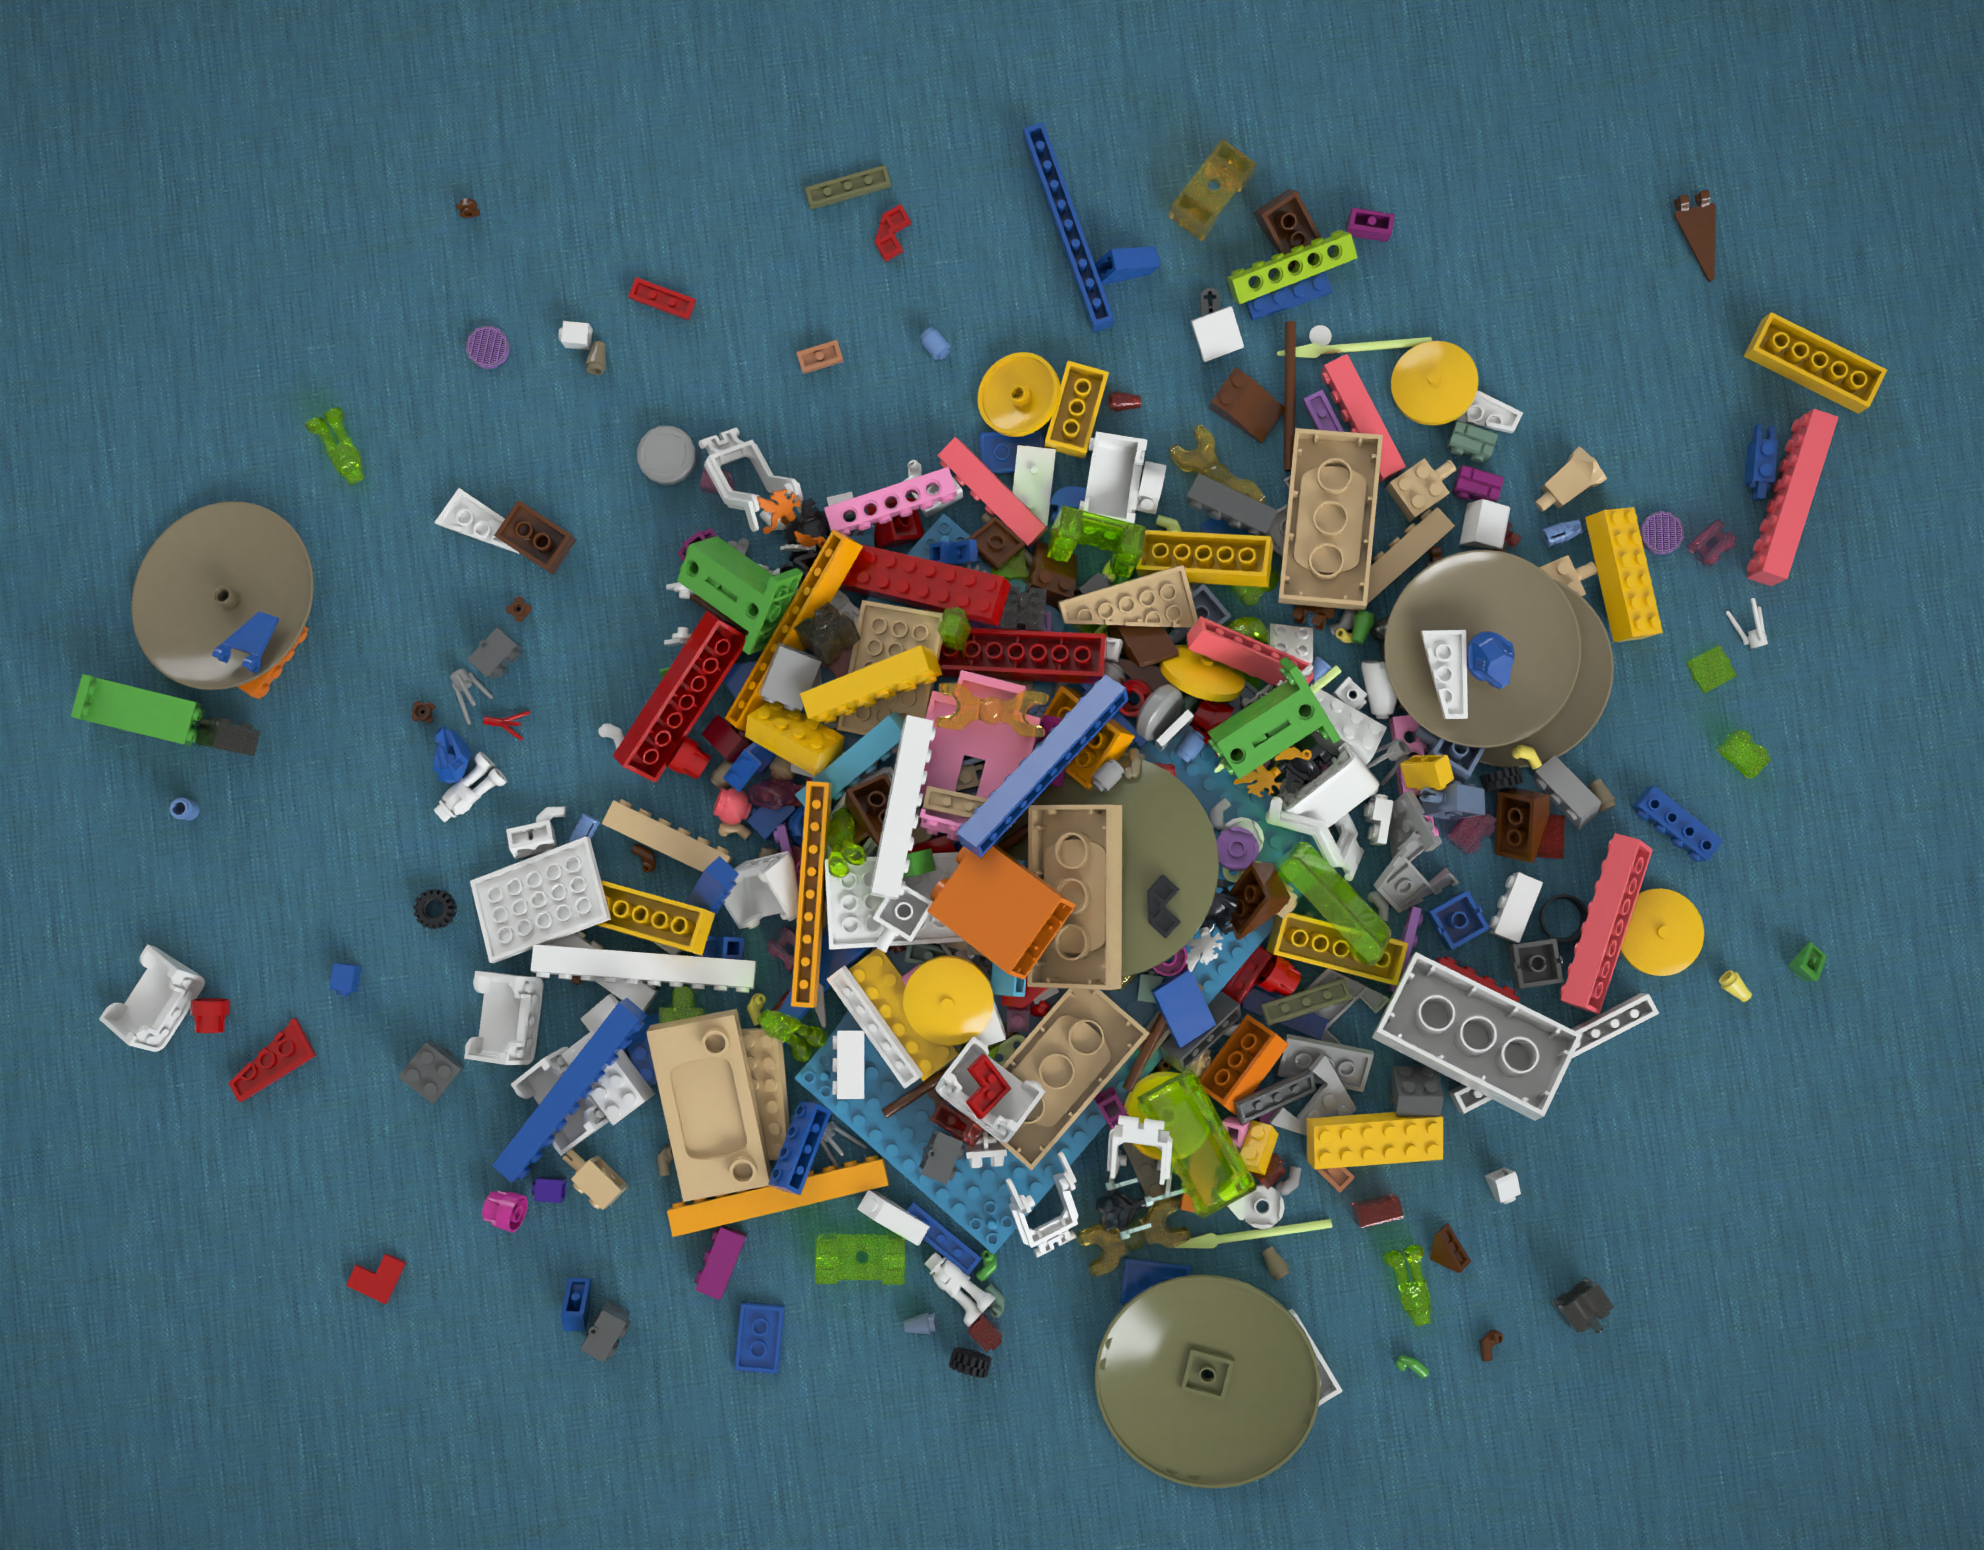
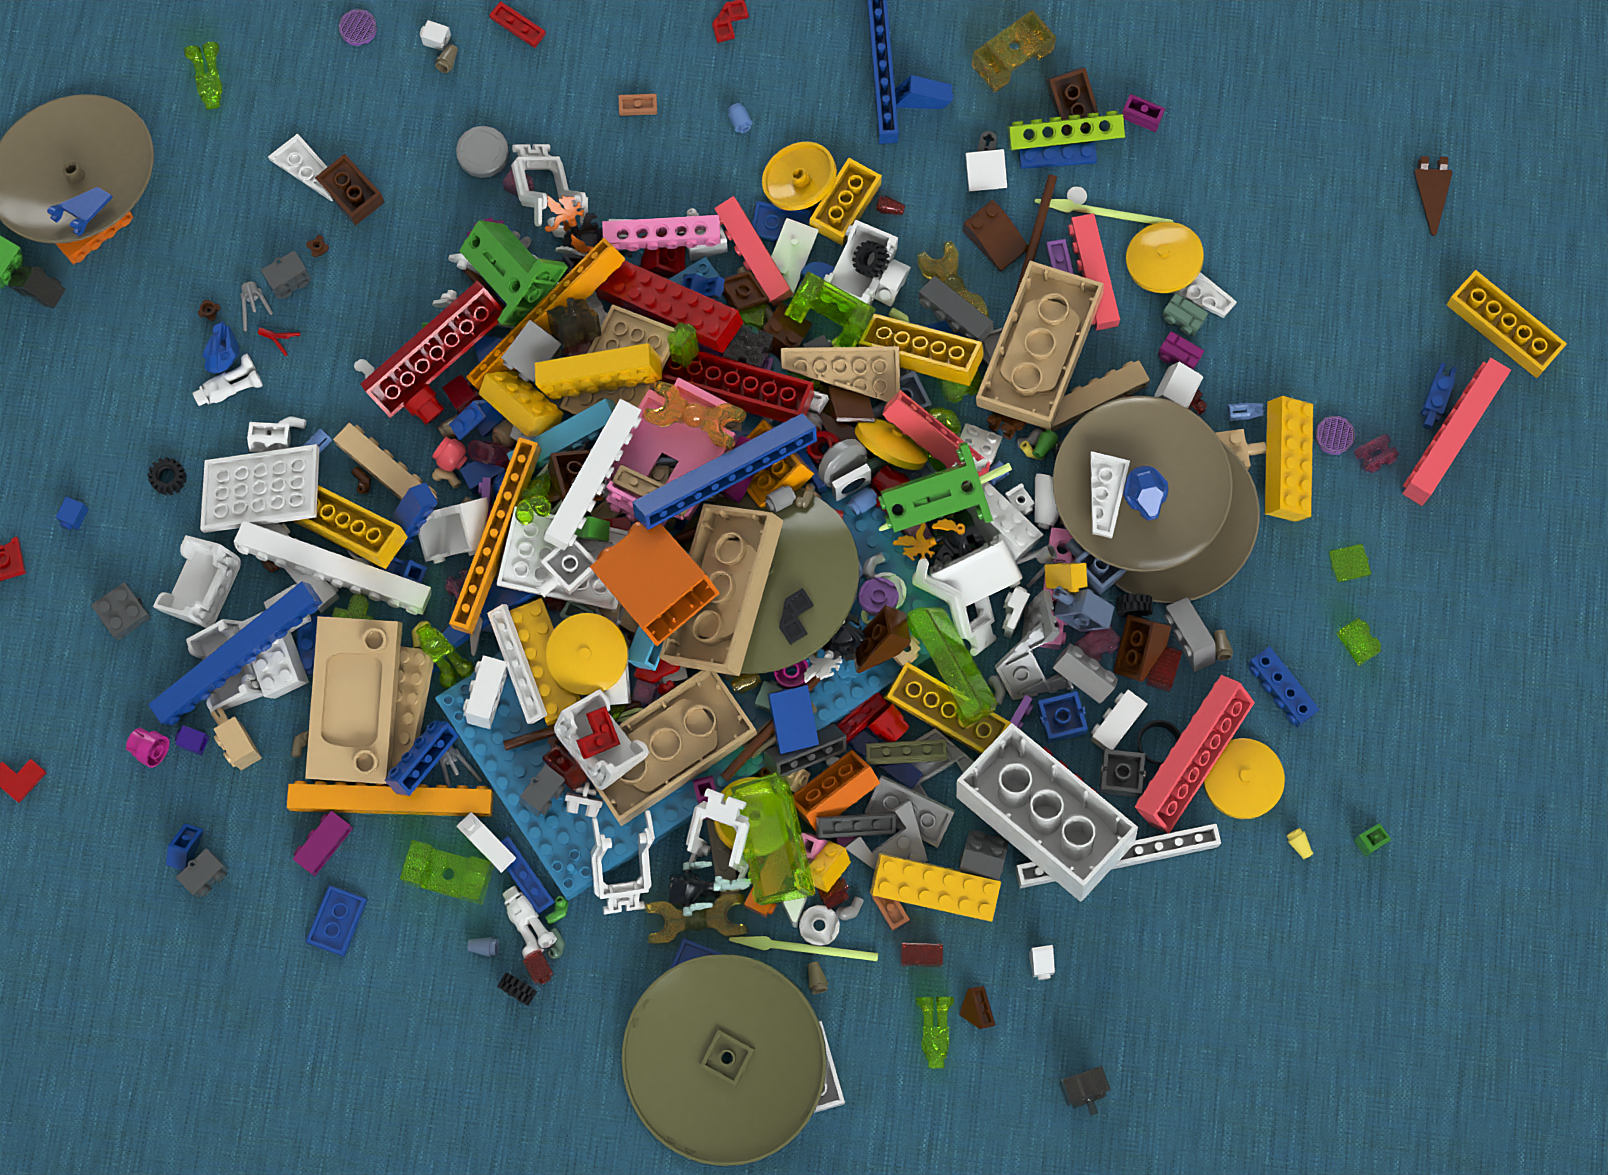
camera: 15 degrees right, 10 degrees down
(1112, 470) = (878, 263): none -> black tyre
(1412, 1363) = (917, 1101): bright green arm -> none
(1420, 488) = (1128, 341): tan brick -> none
(1470, 867) = (1085, 673): none -> light grey brick
(1487, 1342) = (991, 1102): reddish brown arm -> none
(1528, 753) = (1164, 589): light yellow arm -> none
(1572, 479) = (1264, 369): tan piece -> none
(1756, 637) = (1396, 544): white plant -> none

